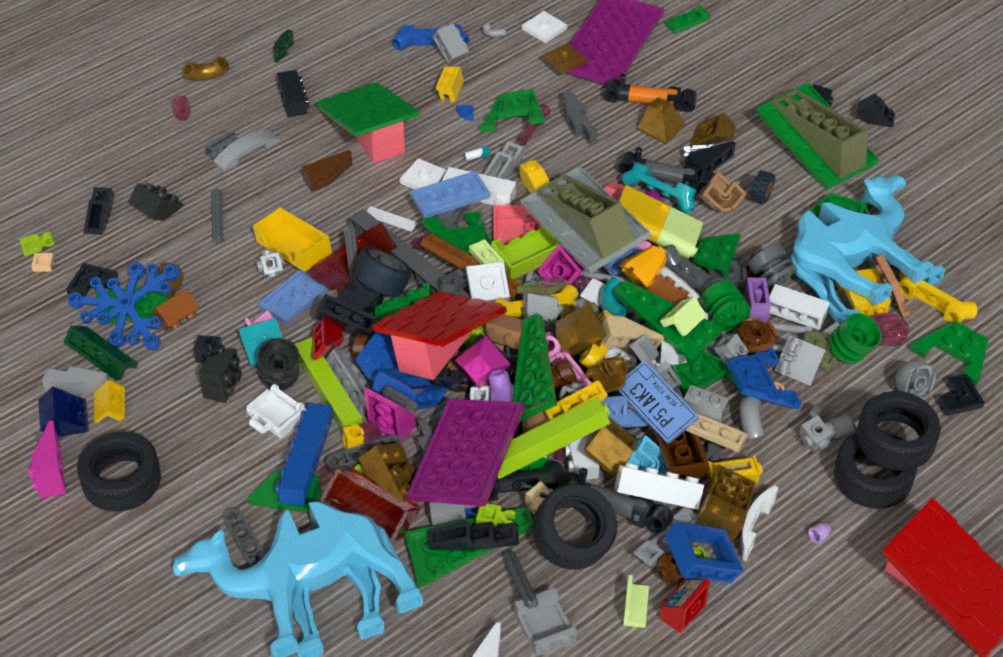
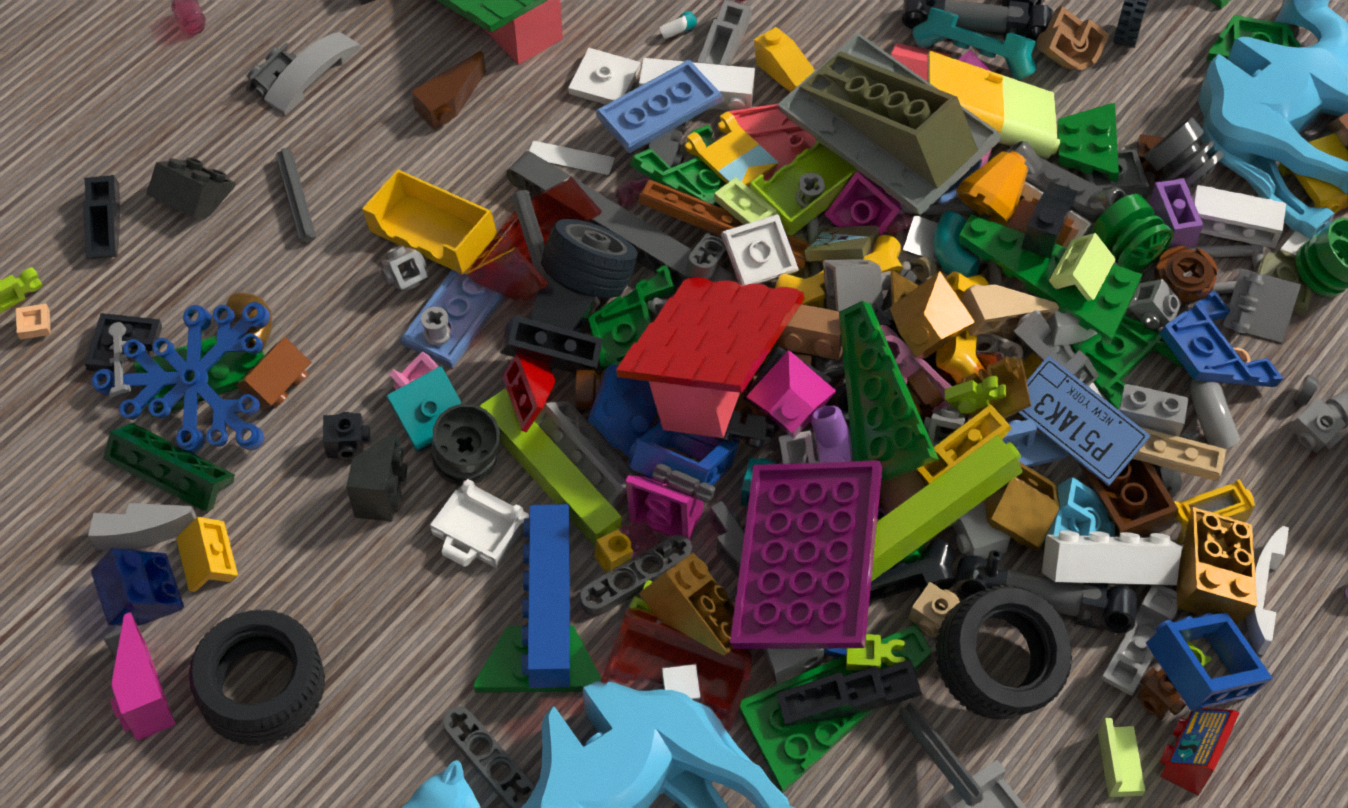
camera: 10 degrees left, 10 degrees up
(89, 273) = (117, 330): none -> light grey piece
(279, 295) = (435, 324): none -> light grey bush
(375, 512) = (683, 680): none -> white tile
(488, 228) = (733, 154): none -> yellow flag
(528, 250) = (807, 189): none -> light grey bush
(590, 375) = (973, 396): none -> lime plate
(670, 286) = (1049, 219): none -> black slope

